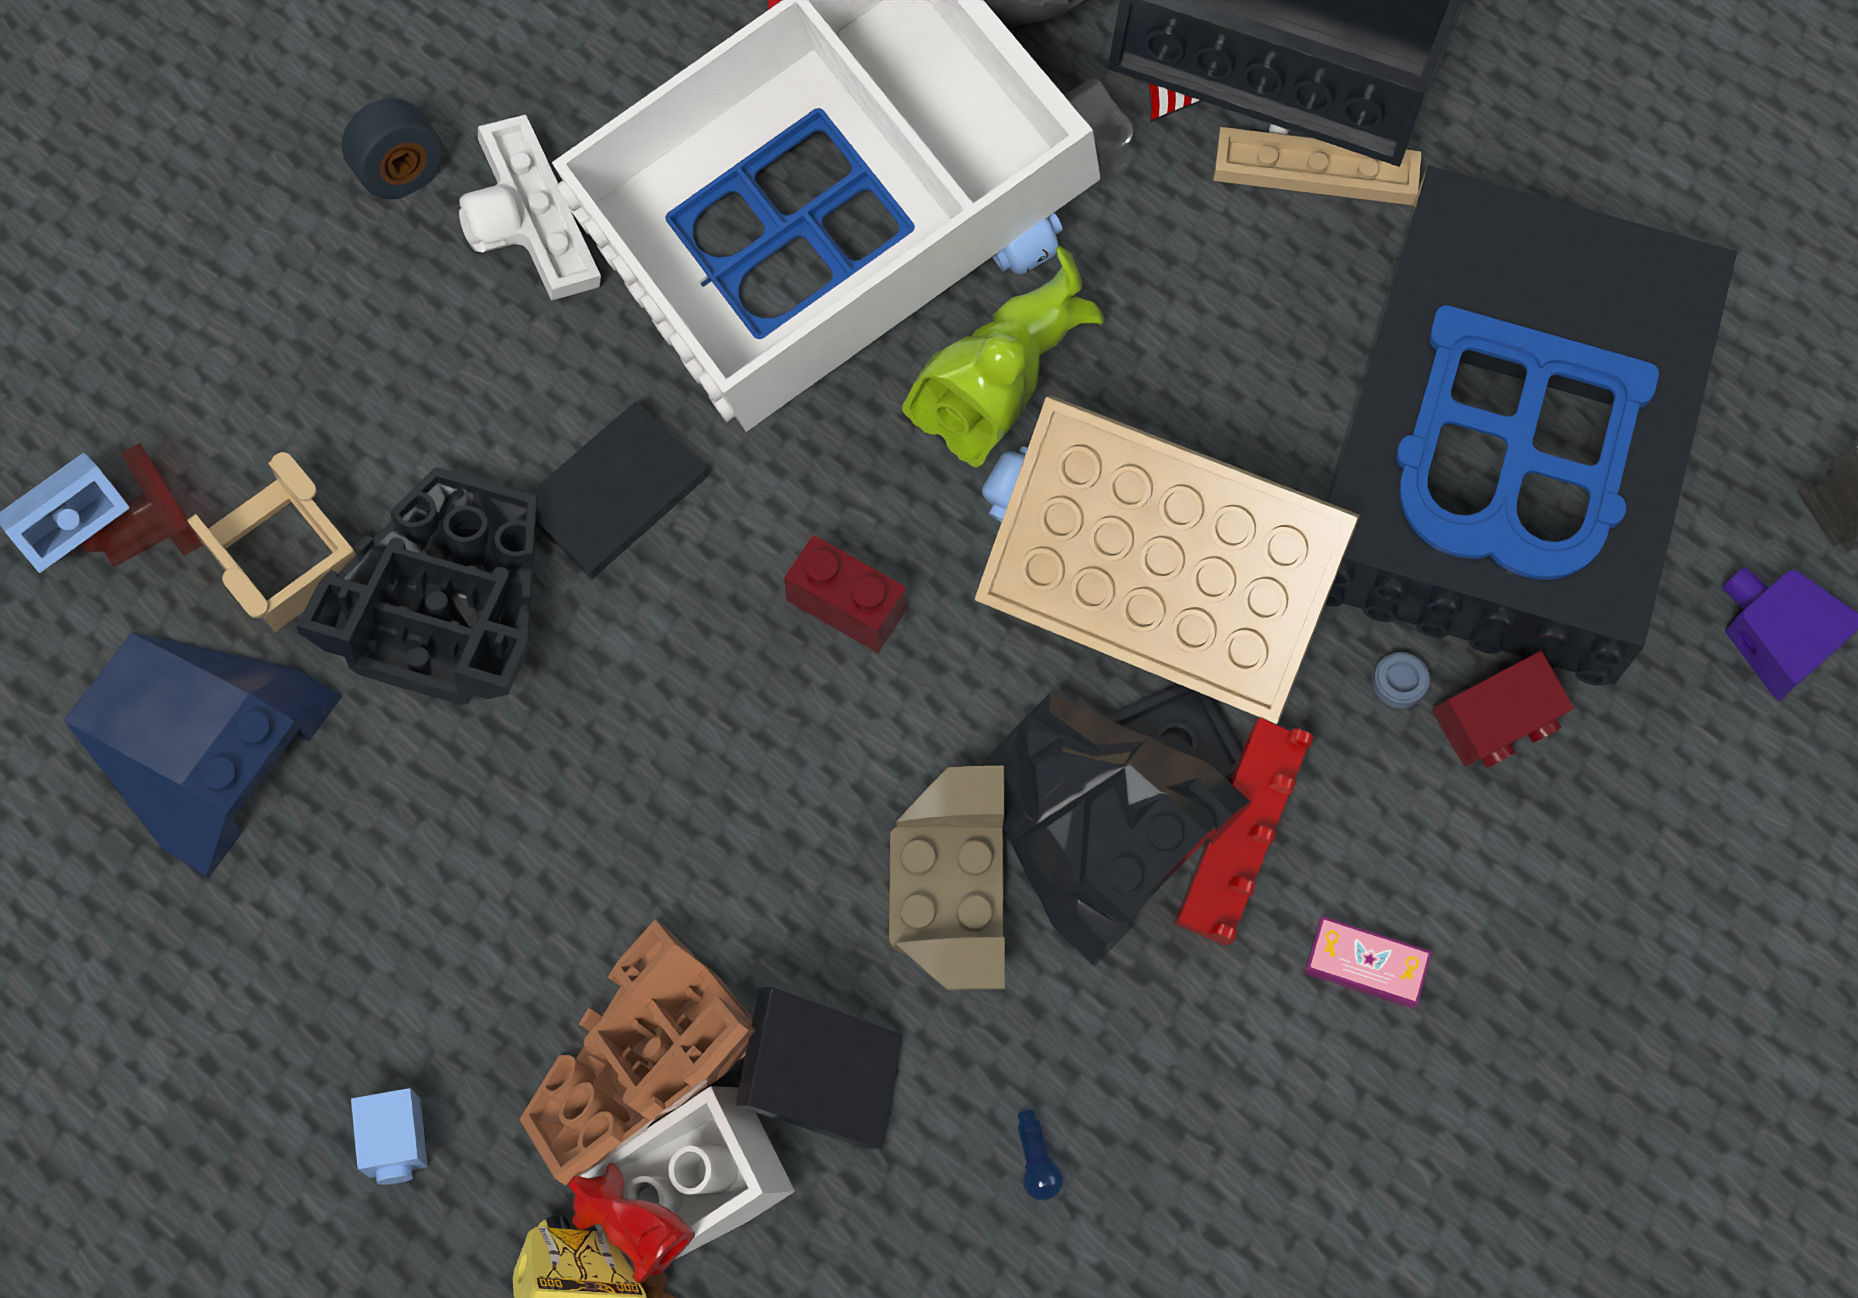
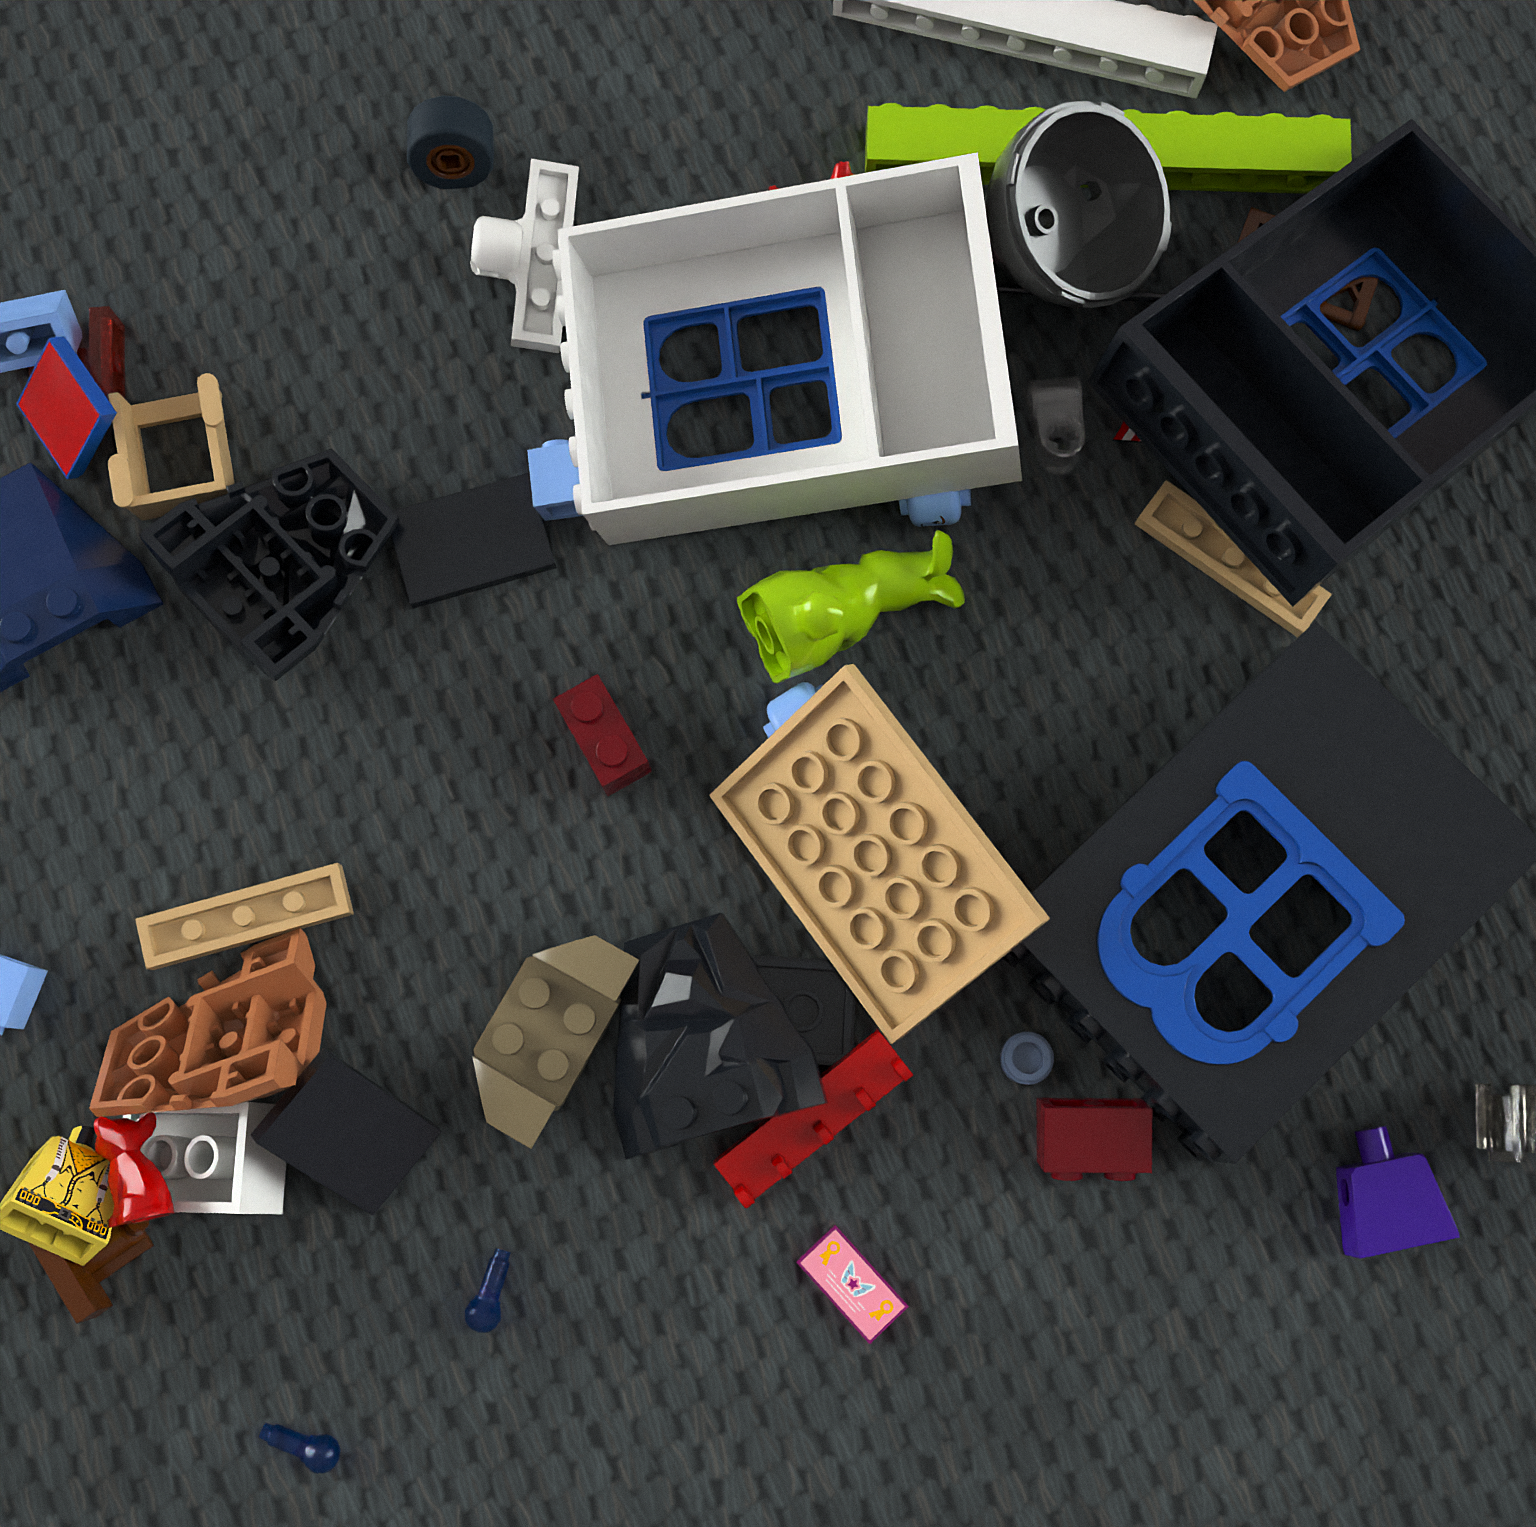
camera: 30 degrees right, 10 degrees up
(147, 557) = (66, 407): none -> red tile
(593, 938) = (244, 916): none -> tan plate
(671, 391) = (553, 480): none -> light blue brick

